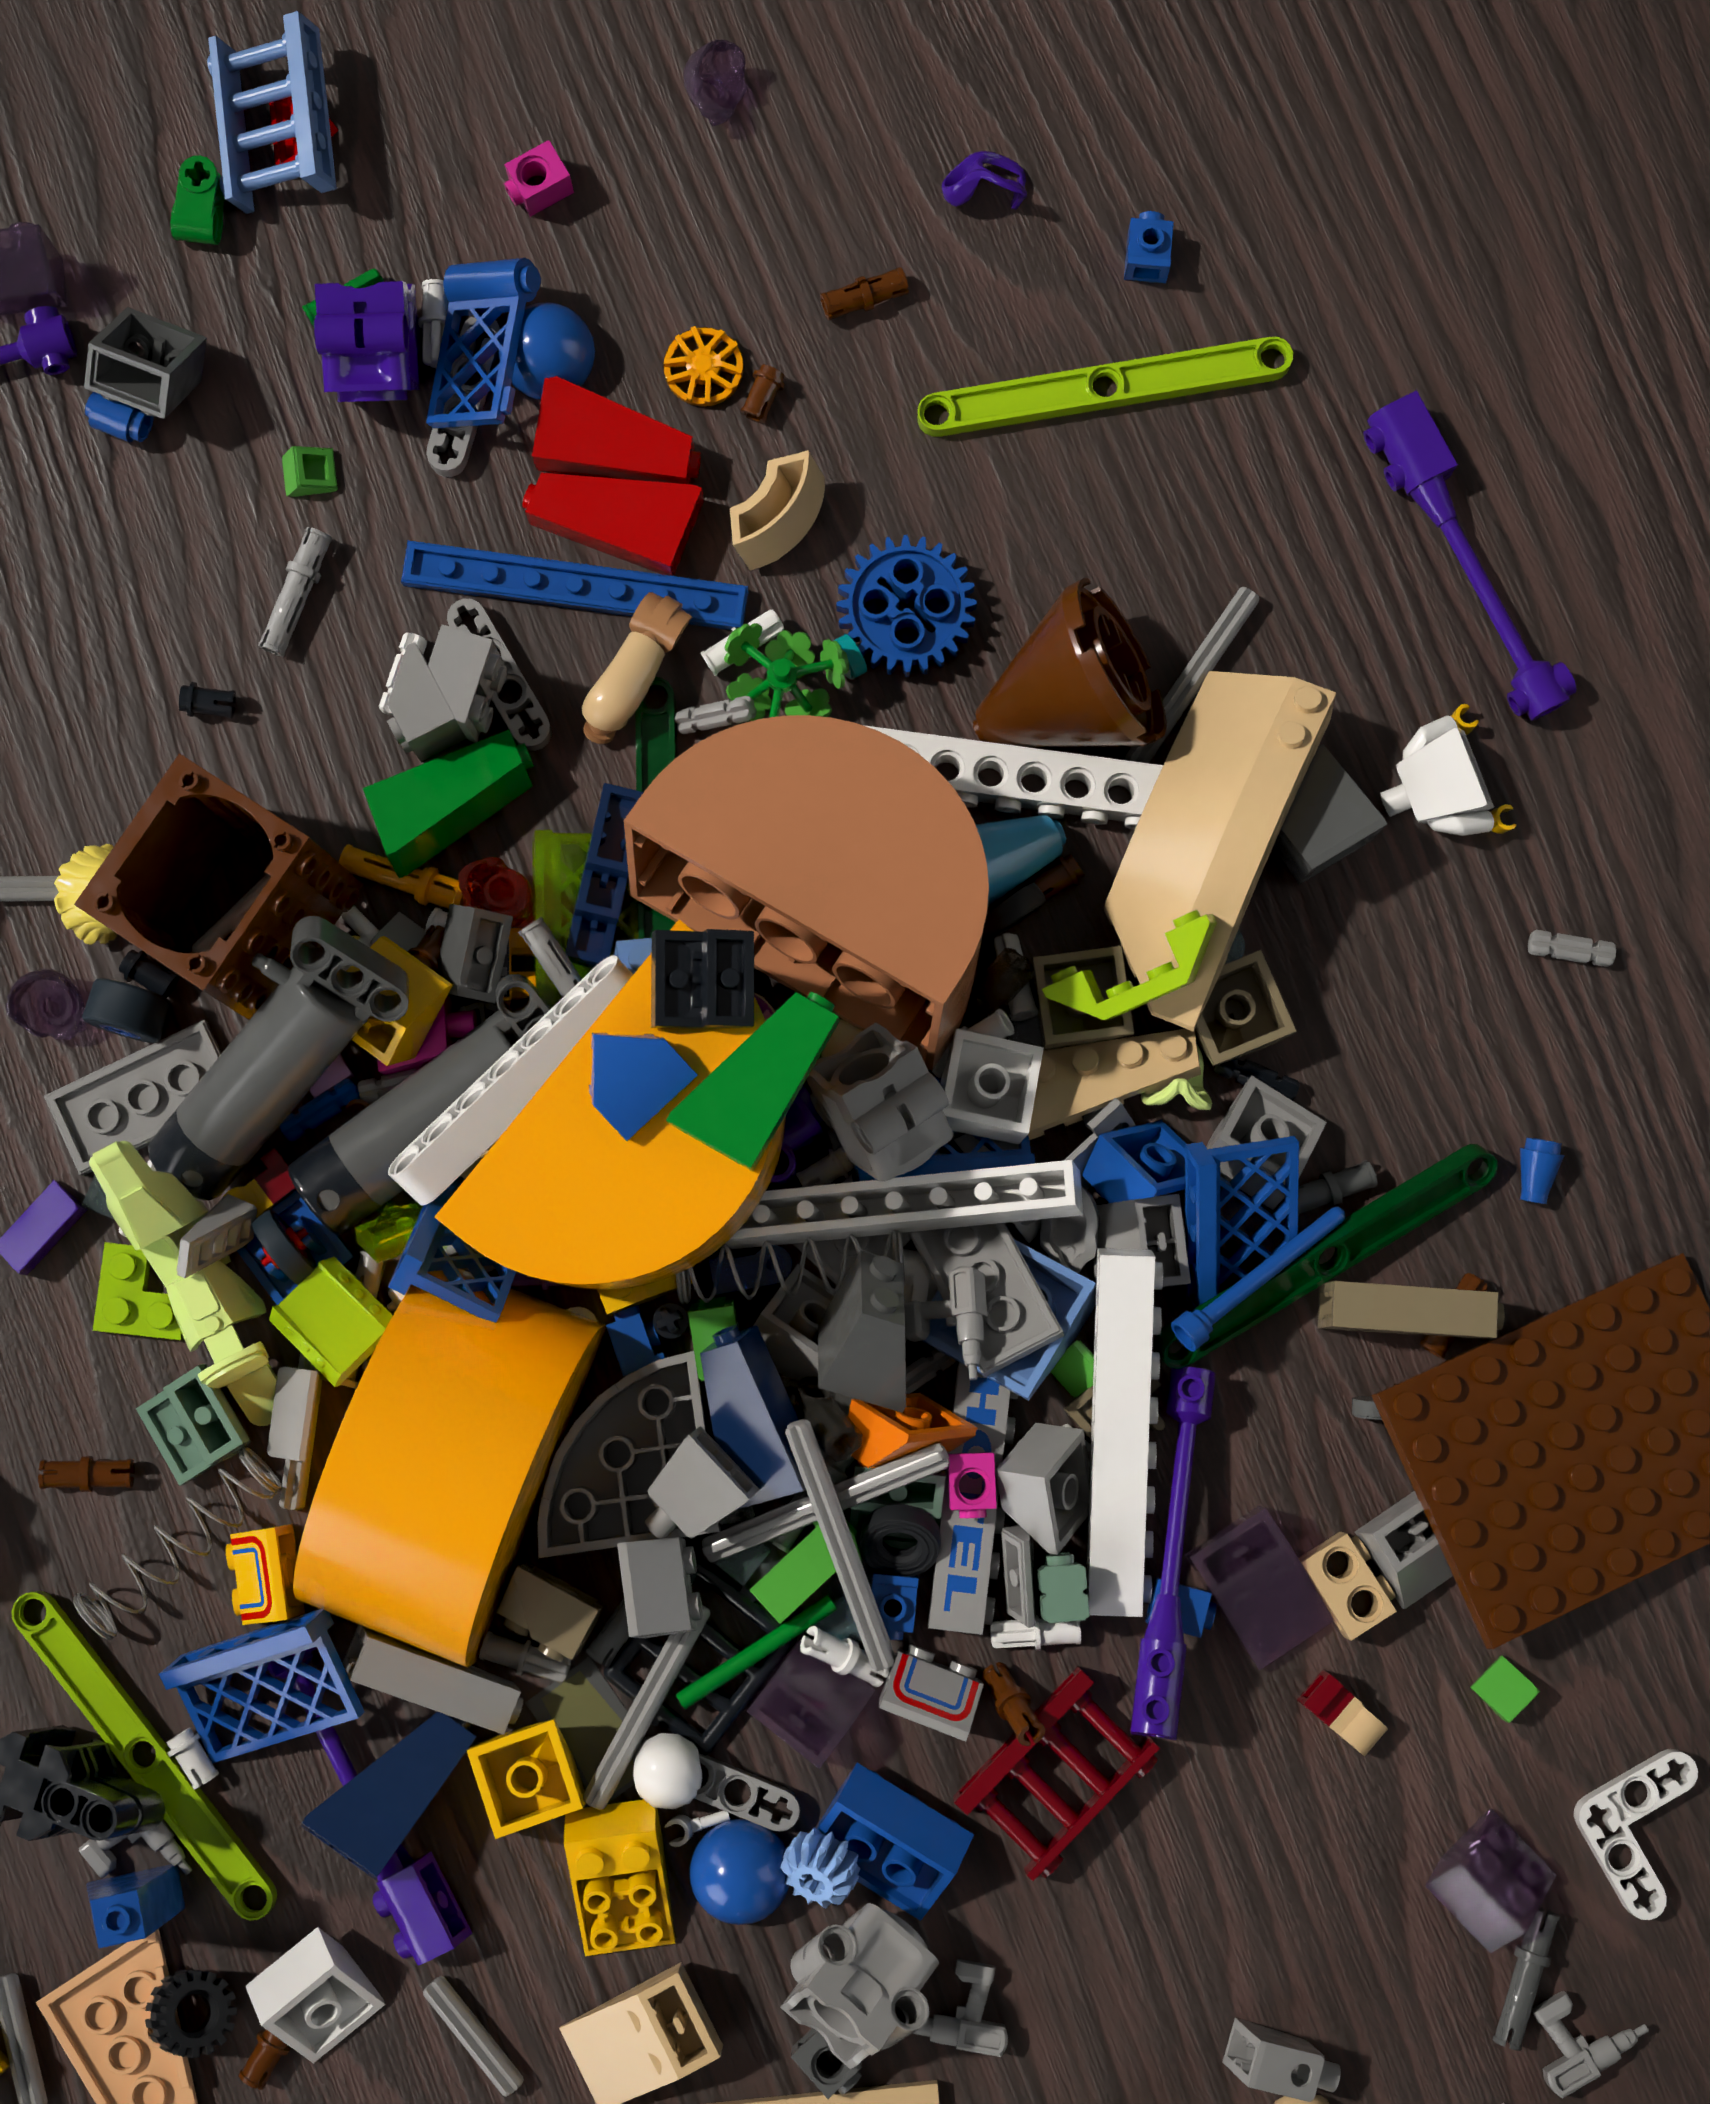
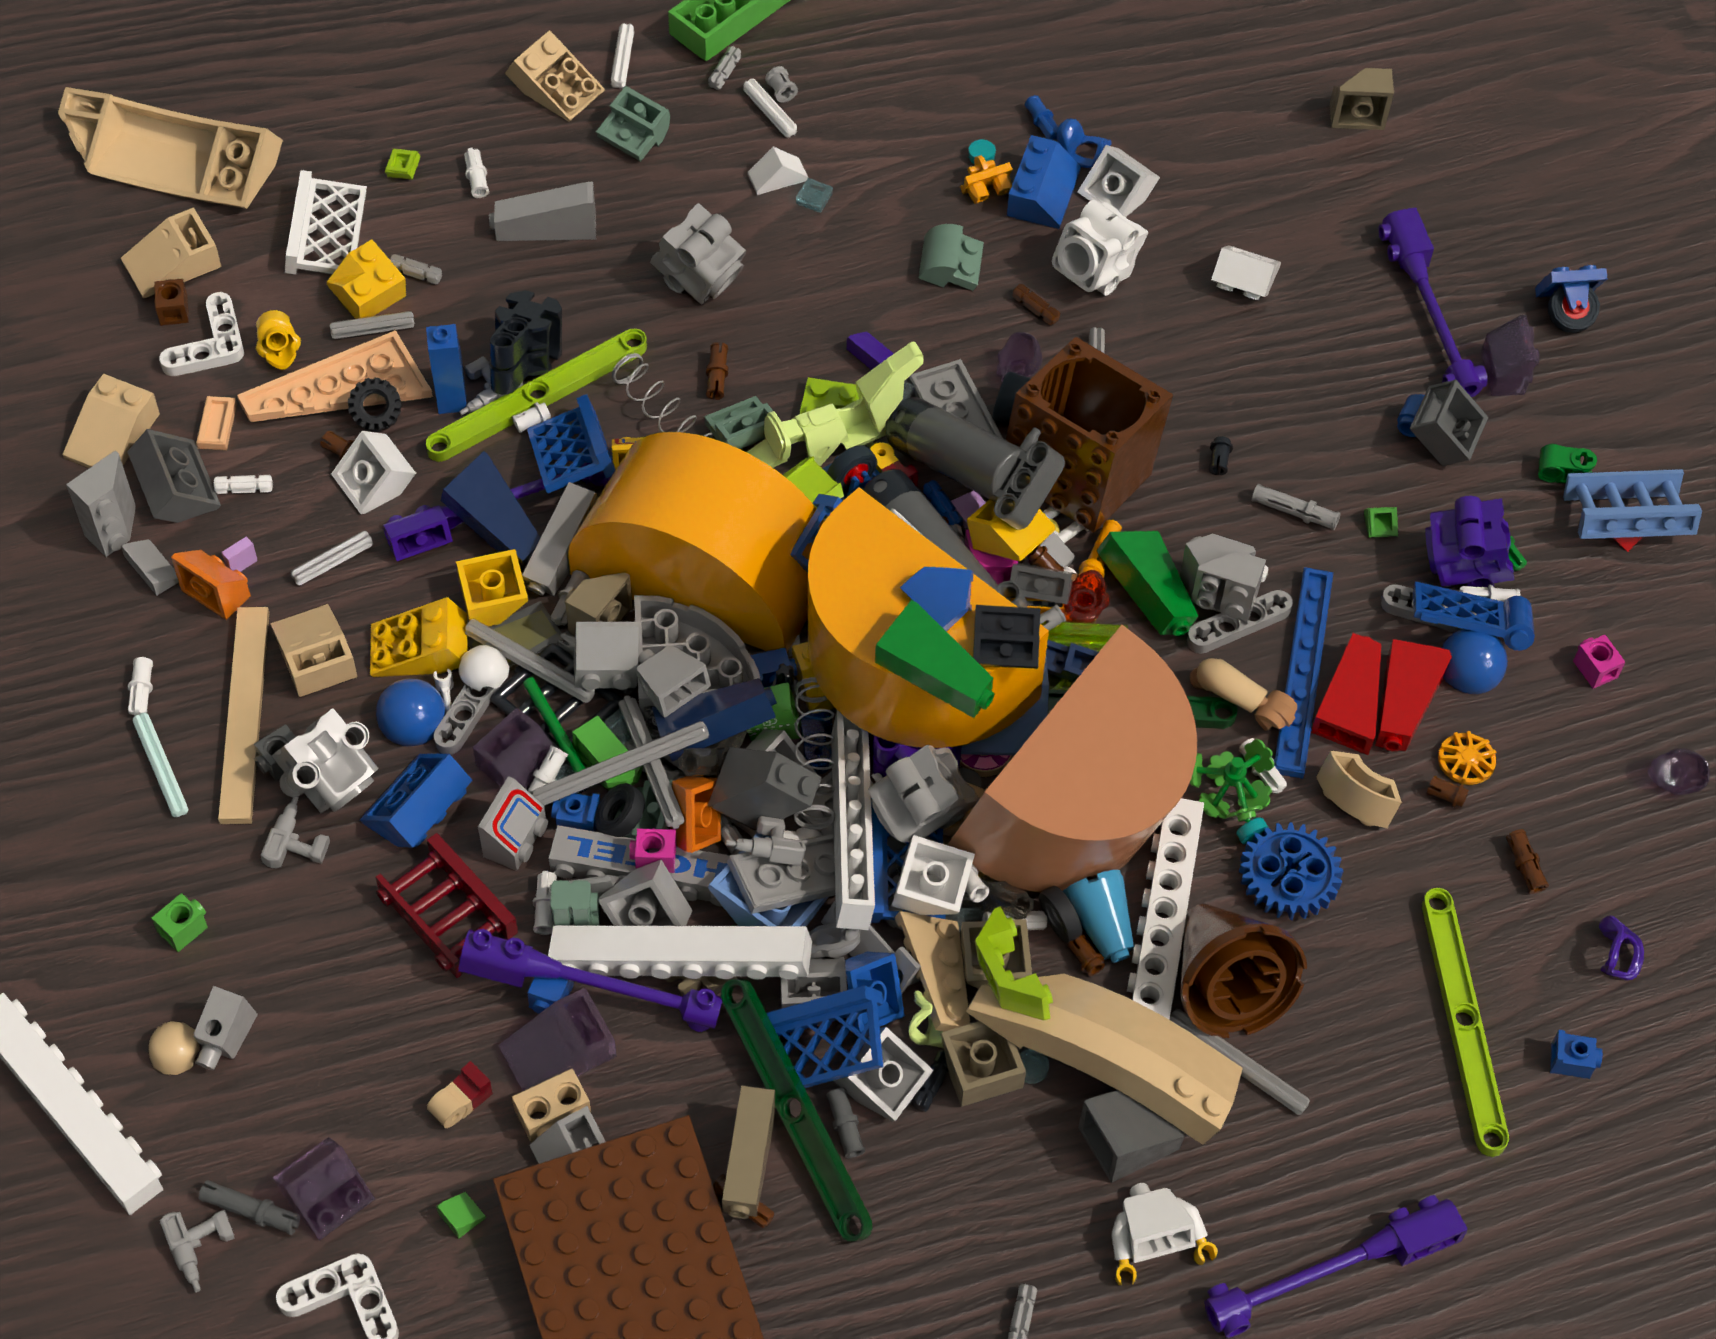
camera: 90 degrees right, 25 degrees down
(216, 1235) = (864, 433): light grey slope -> none
(715, 715) = (1209, 742): light grey axle -> none
(820, 1868) = (406, 752): light blue gear -> none
(1013, 1704) = (498, 874): reddish brown pin -> none
(1194, 1327) = (749, 994): blue piece -> none
(1539, 1167) = (852, 1274): blue cone -> none

